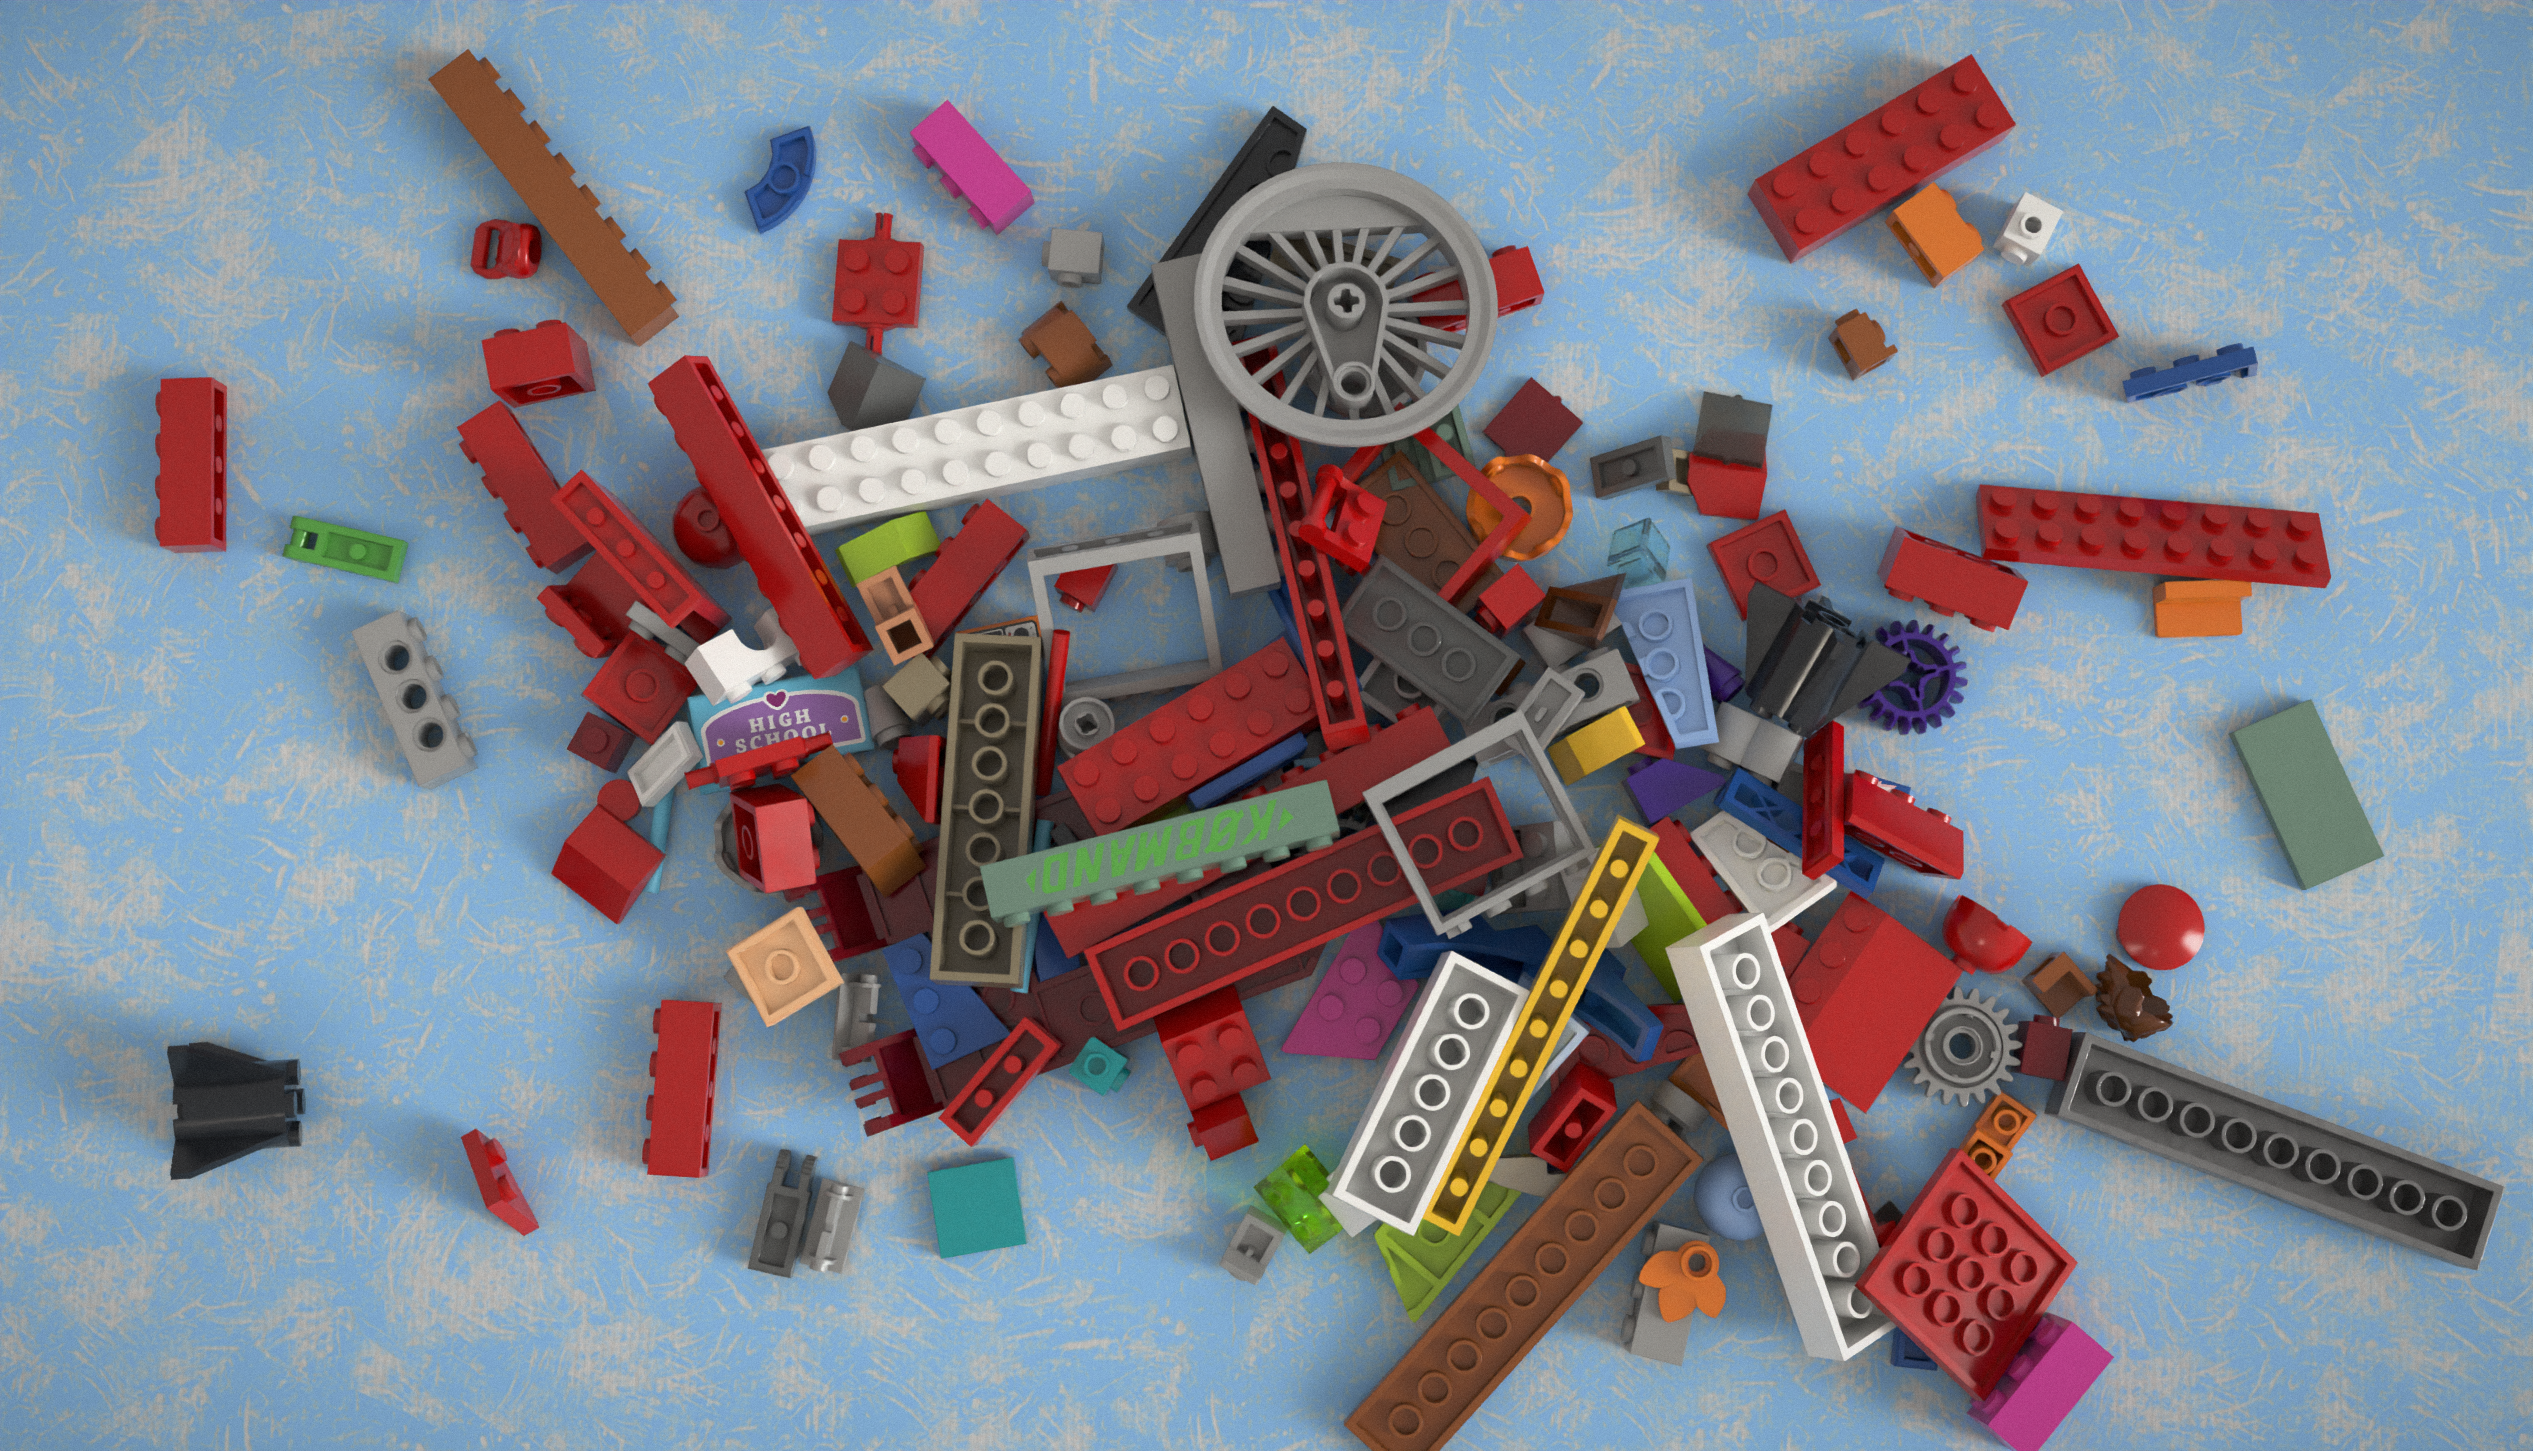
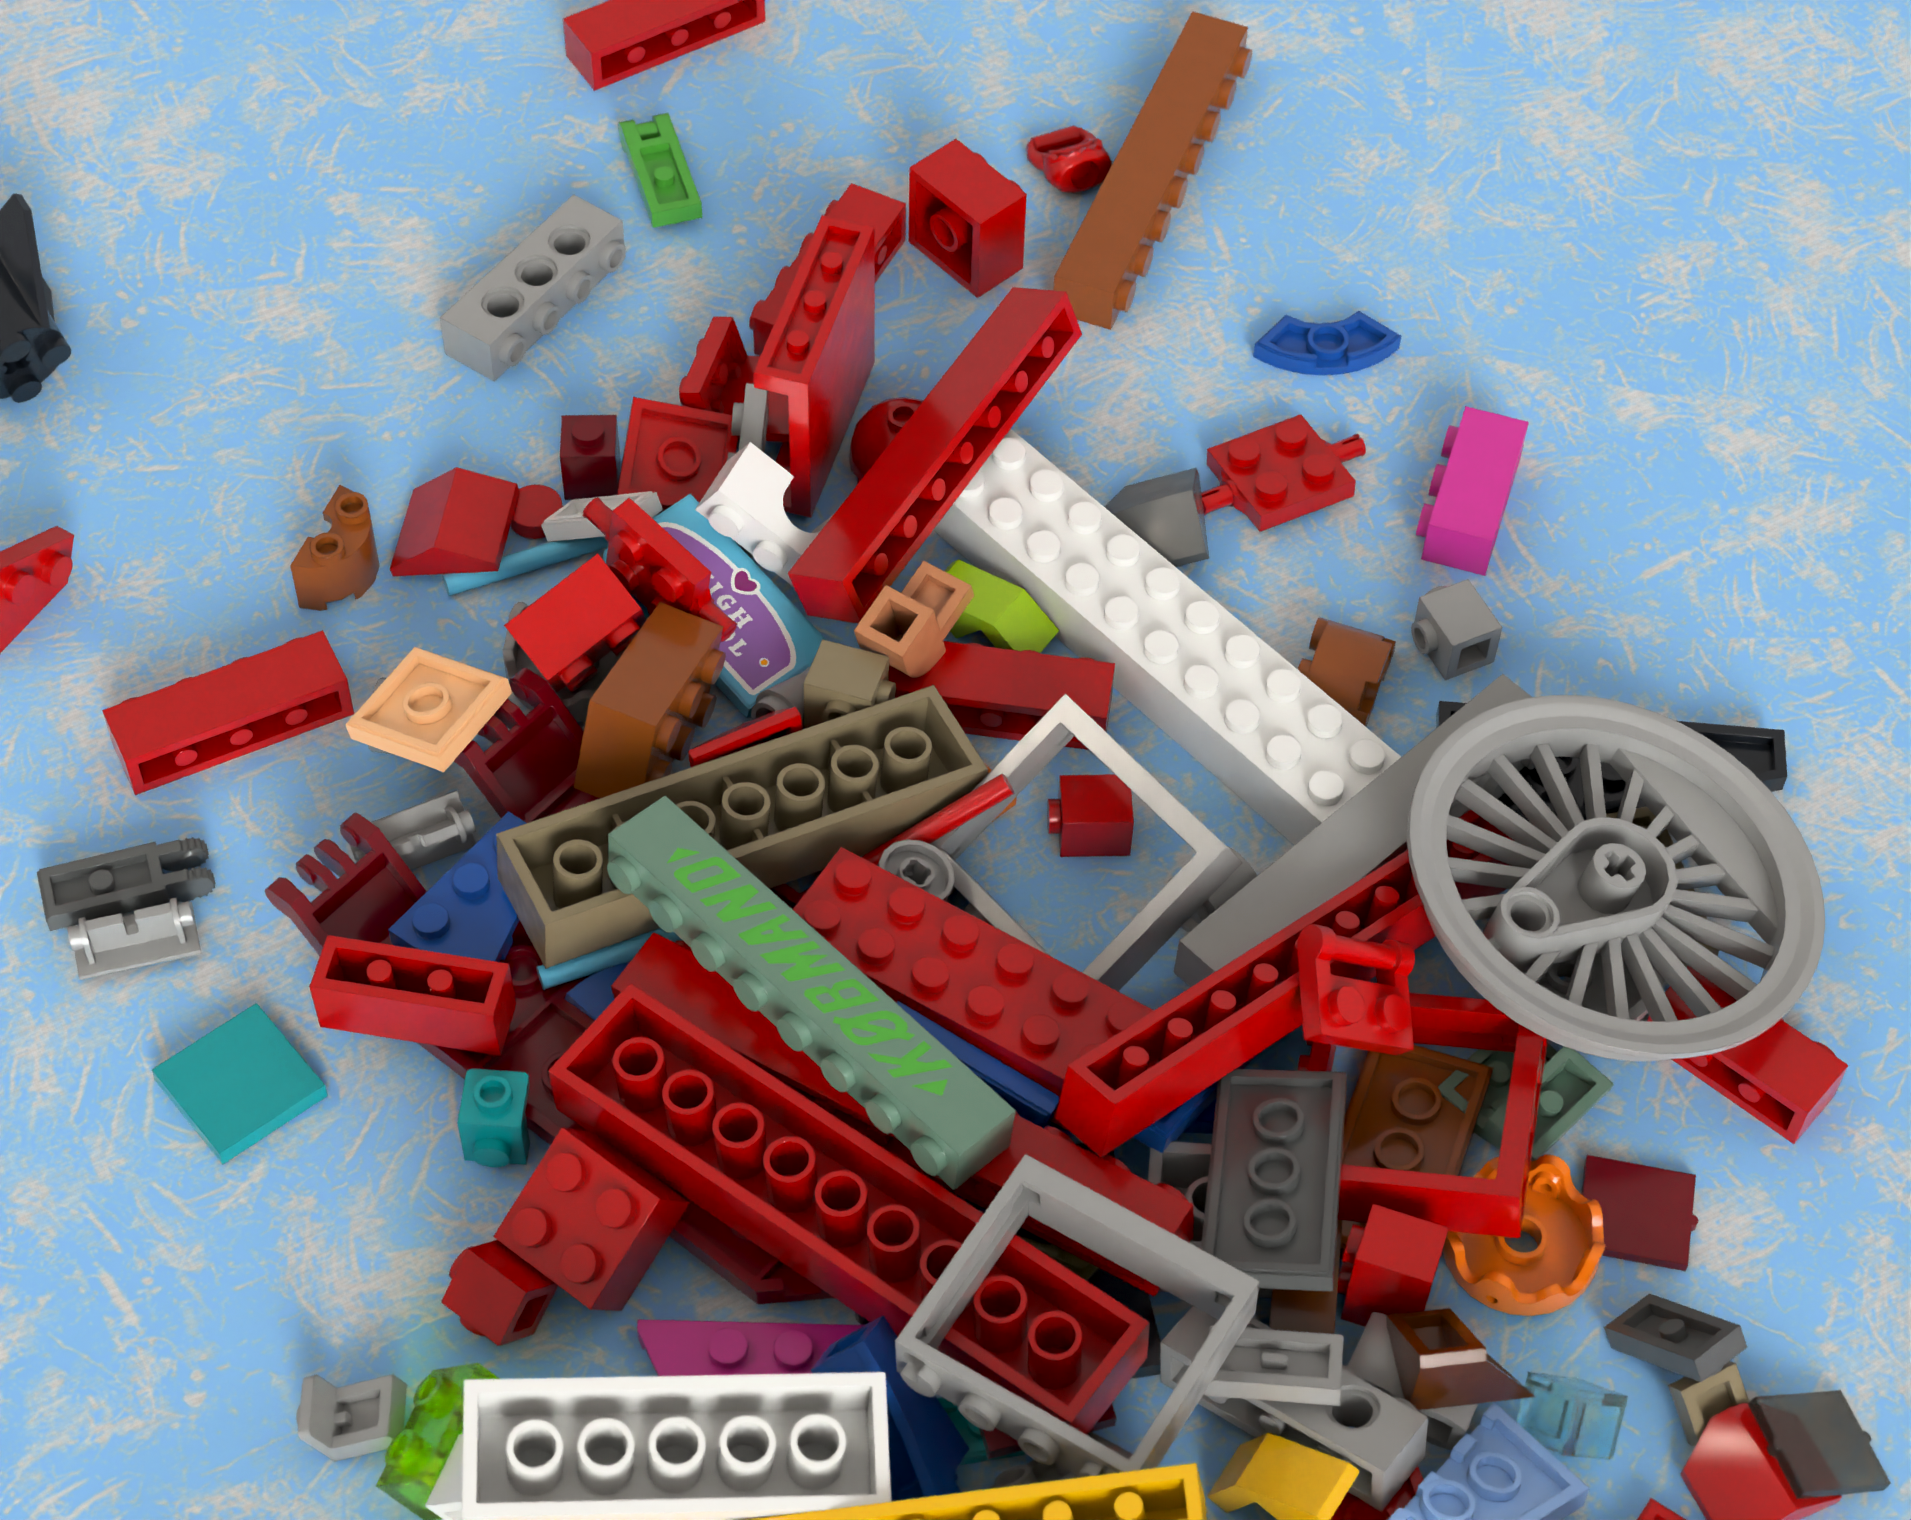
camera: 55 degrees right, 30 degrees down
(598, 950) = (339, 560): none -> dark orange cylinder

